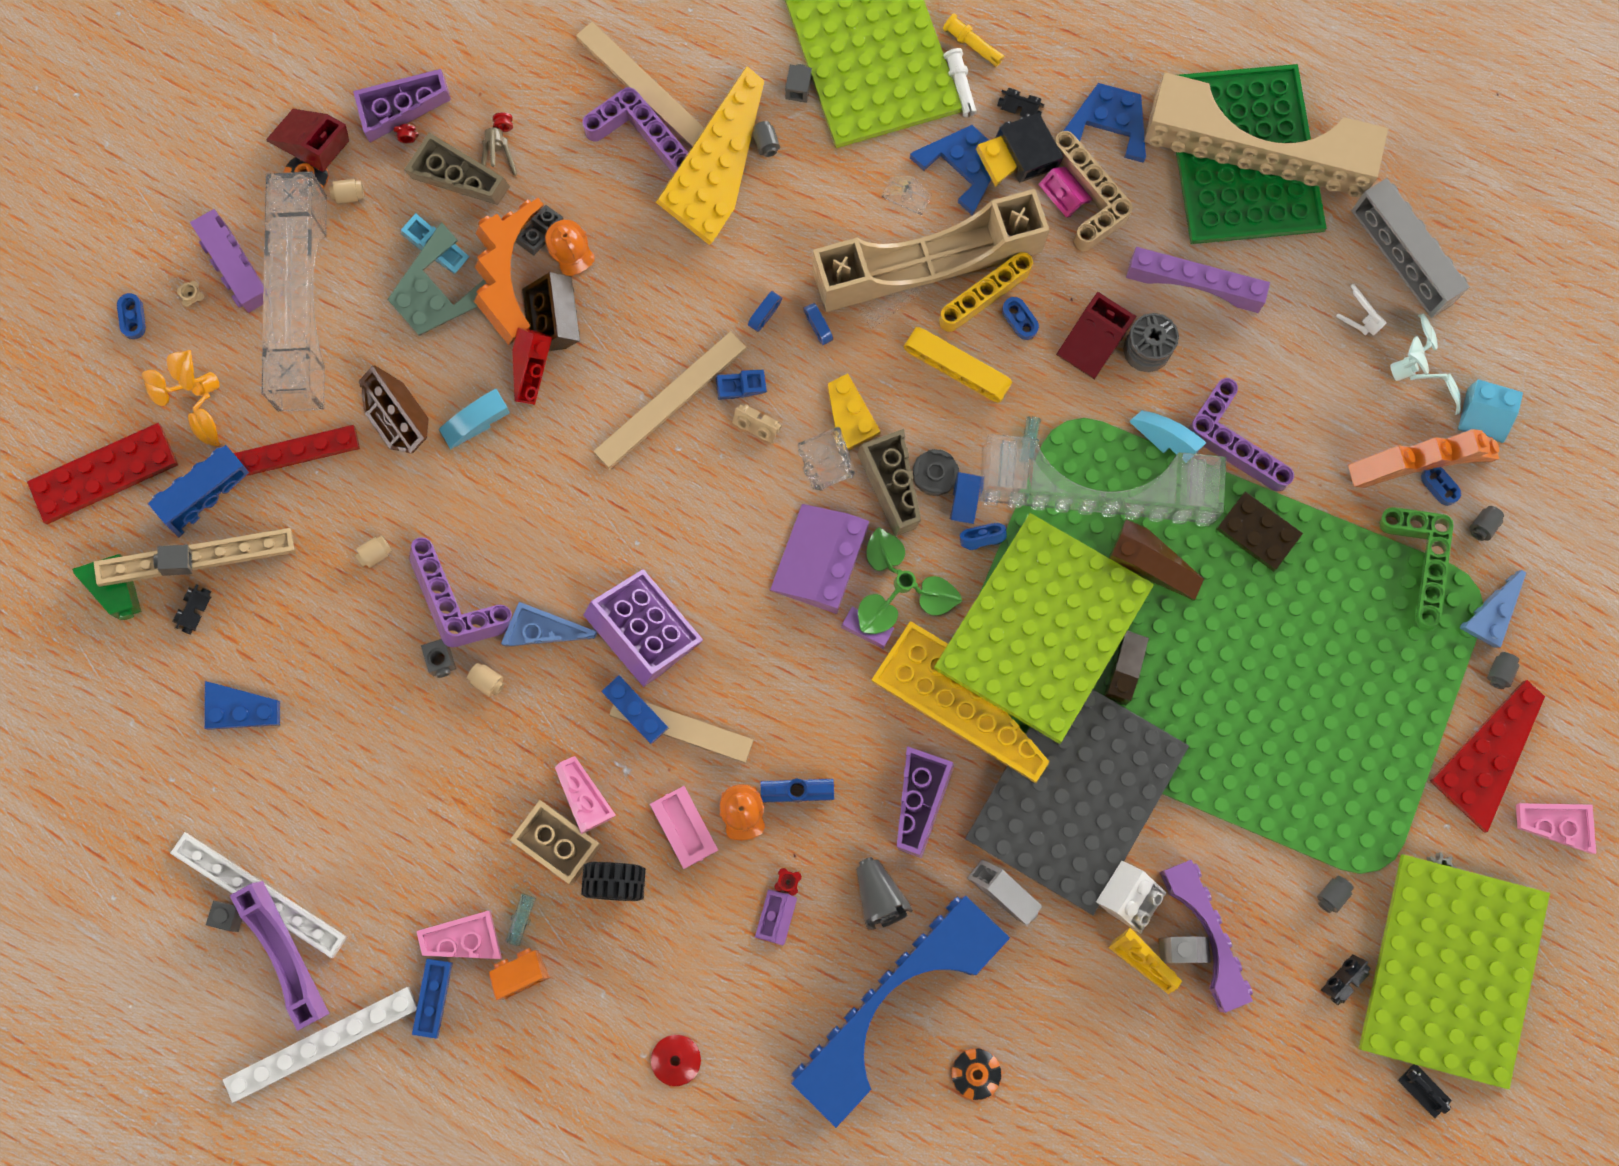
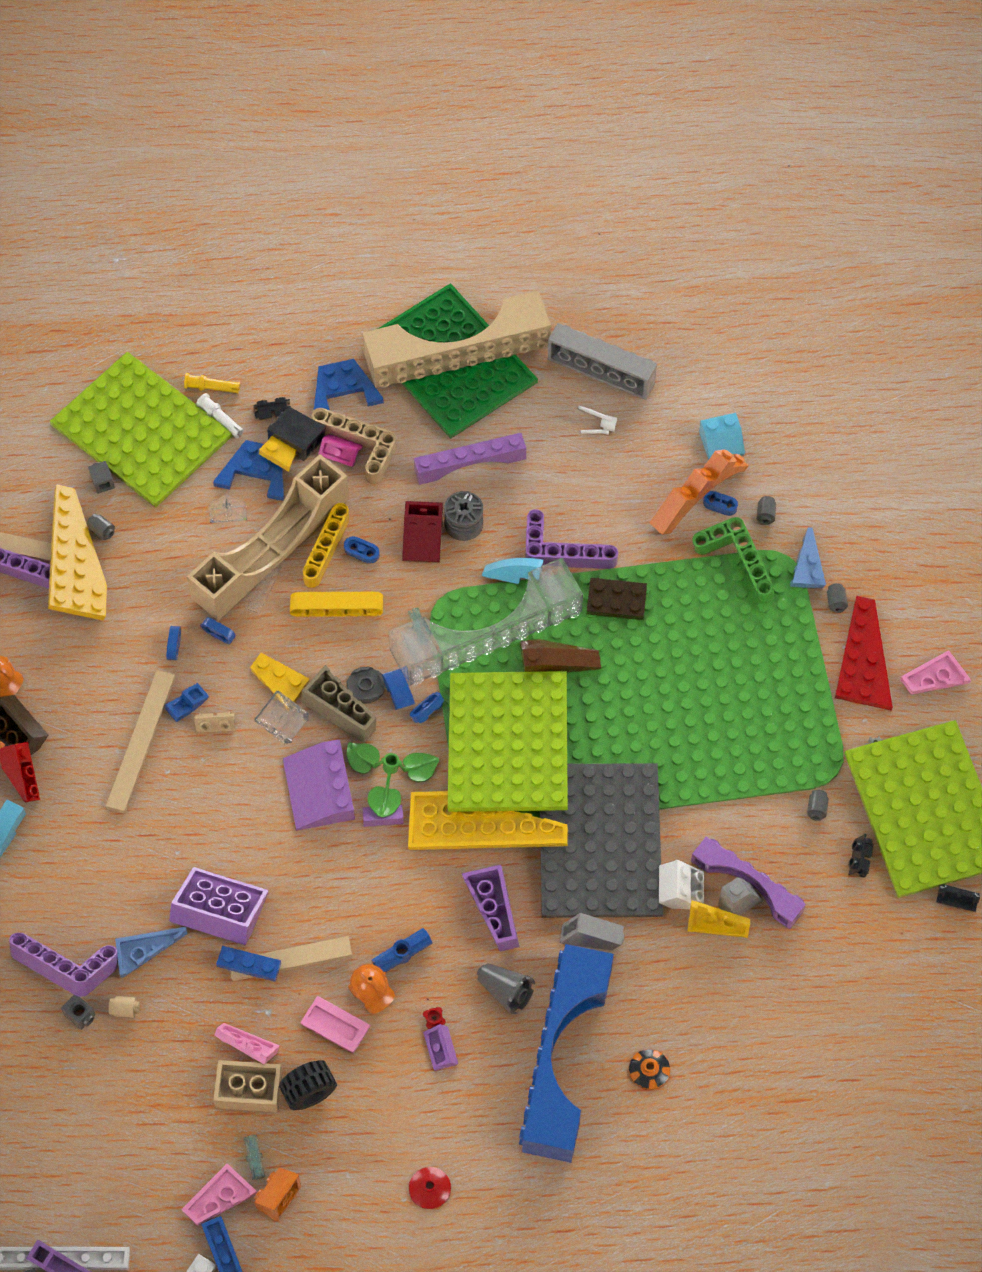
camera: 30 degrees left, 15 degrees down
(1126, 668) = (582, 738): dark brown slope -> none
(1408, 366) = (649, 438): light aqua plant -> none

